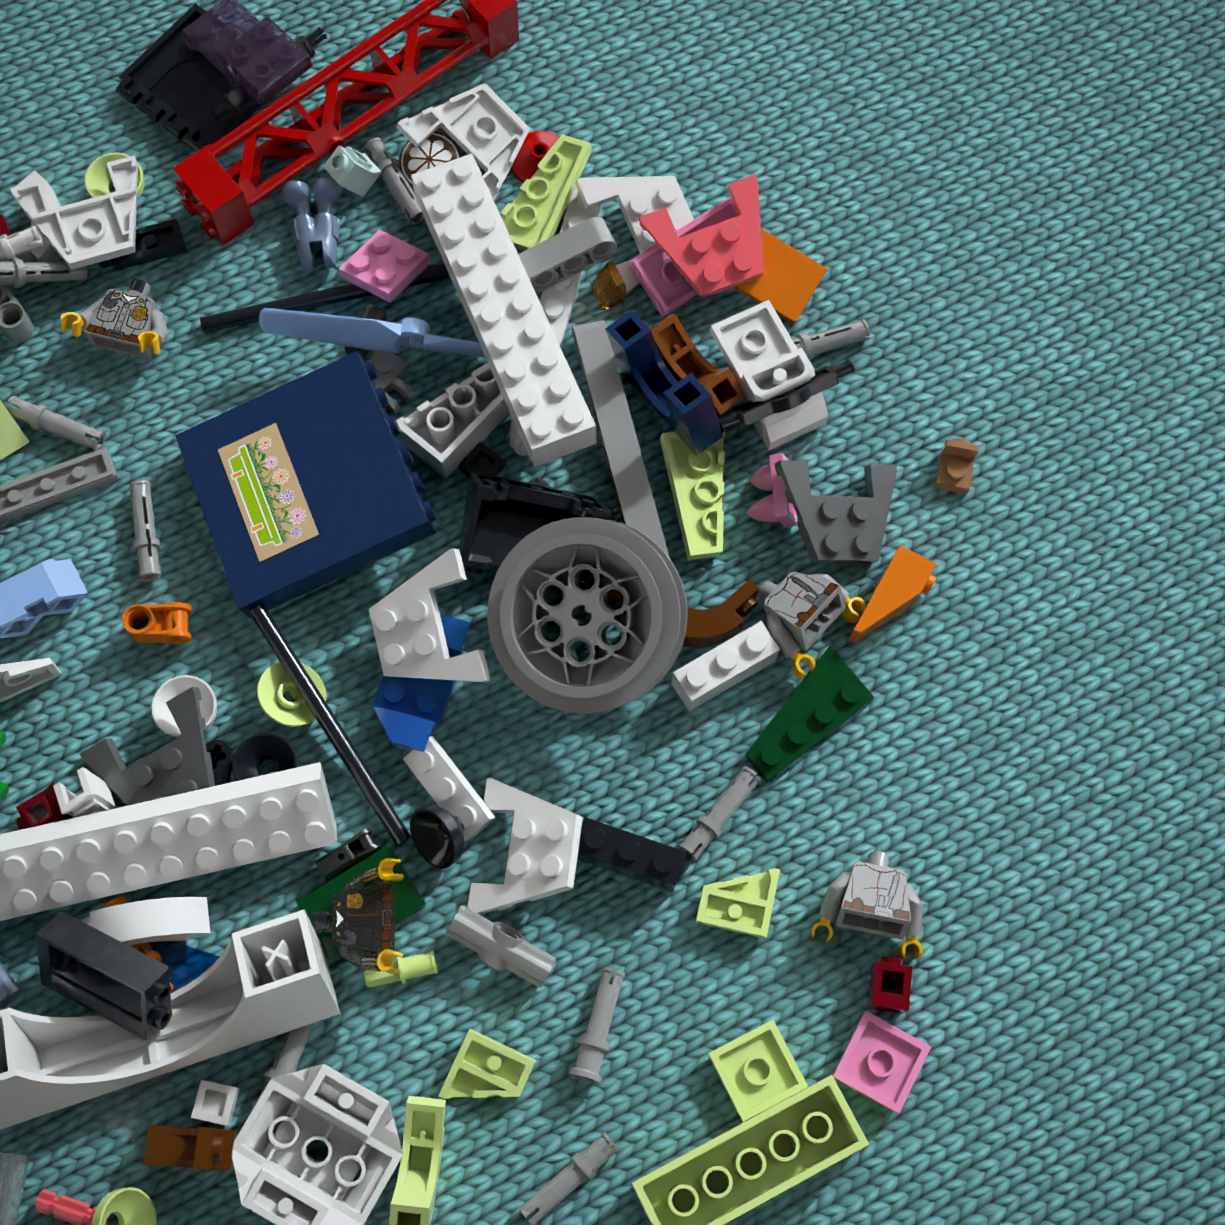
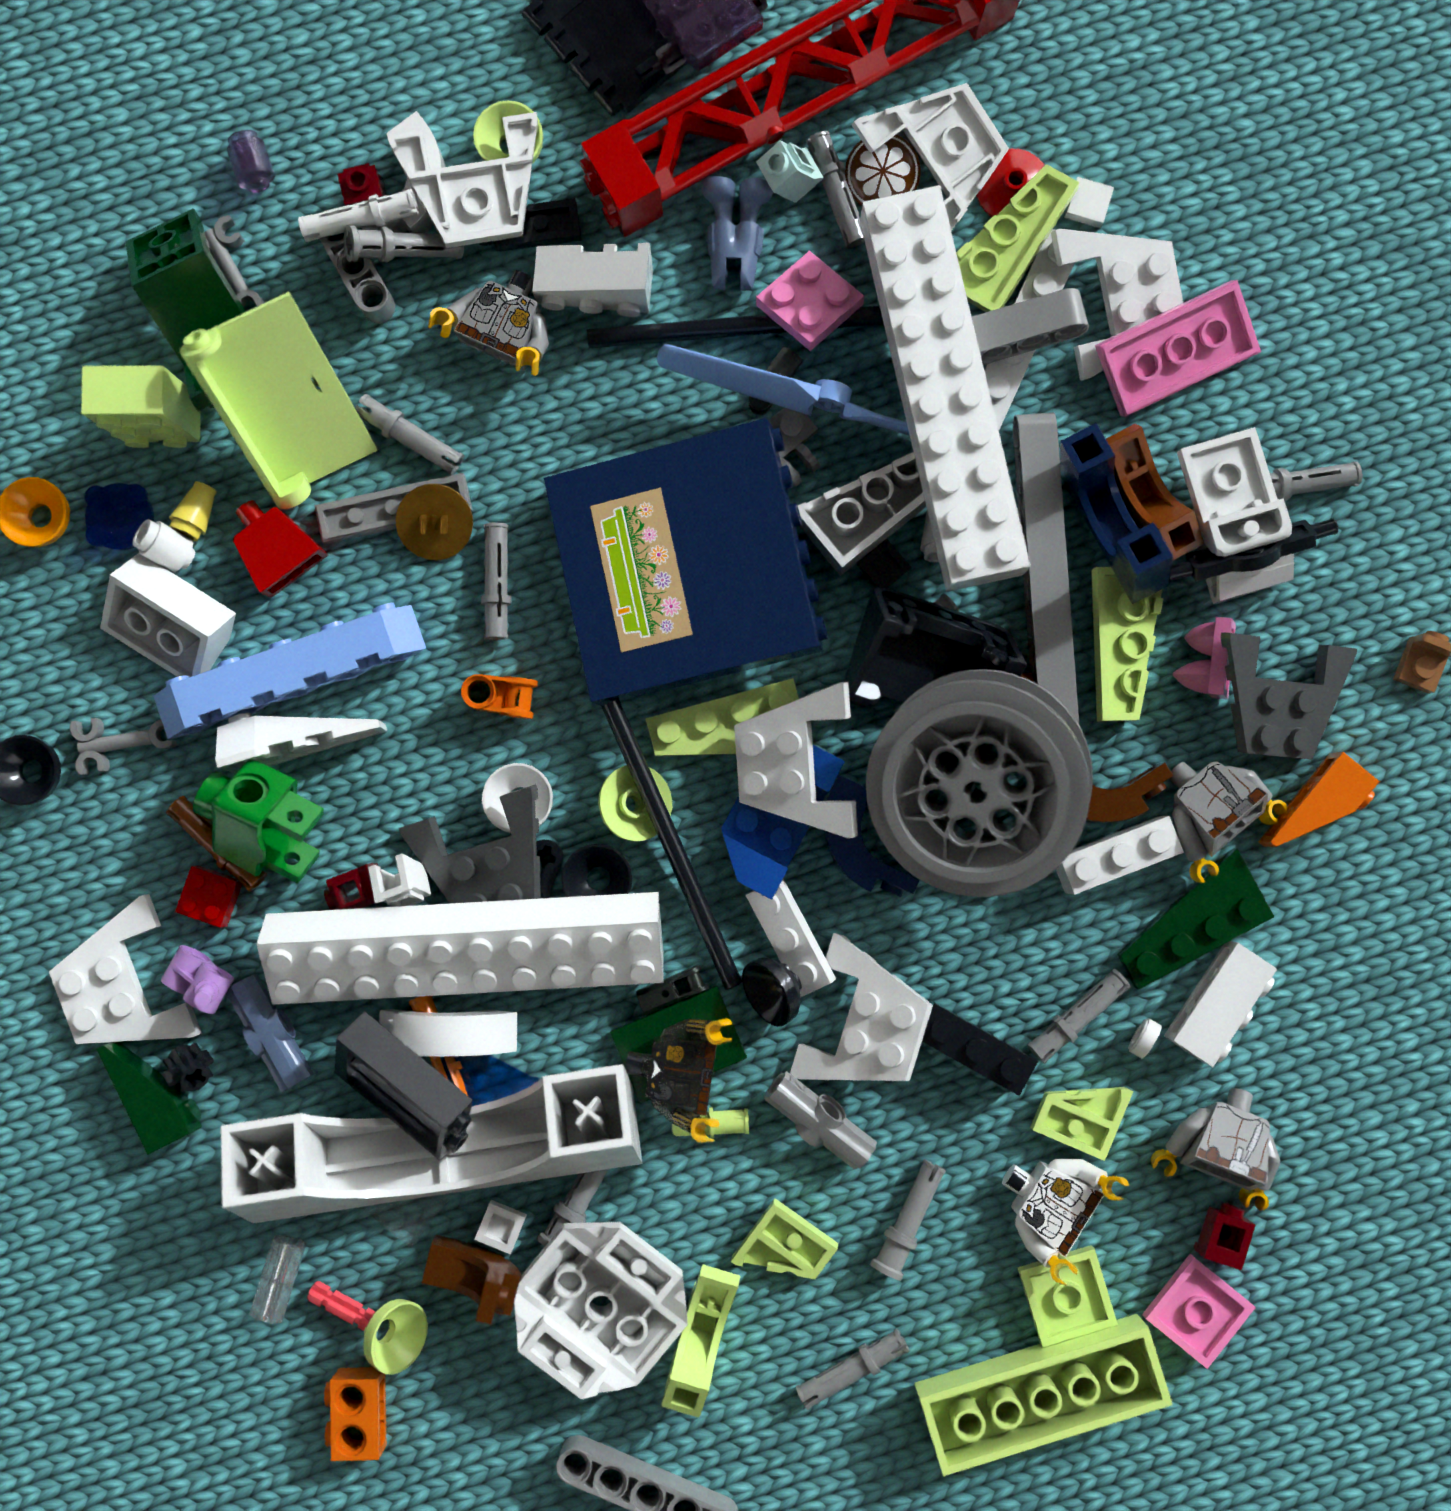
camera: 15 degrees right, 15 degrees up
(84, 489) = (434, 521): none -> pearl gold piece
(201, 275) = (594, 279): none -> white wedge
(345, 621) = (710, 725): none -> yellowish green wing
(495, 709) = (852, 854): none -> dark blue arch
(604, 160) = (1089, 203): none -> white tile
(609, 286) = (1066, 369): clear orange slope -> none
(720, 253) = (1209, 355): coral wing -> none
(731, 985) = (1056, 1206): none -> white torso
(781, 821) = (1144, 1038): none -> white tile
(786, 280) = (1259, 383): orange tile -> none
(843, 779) = (1221, 1003): none -> white brick

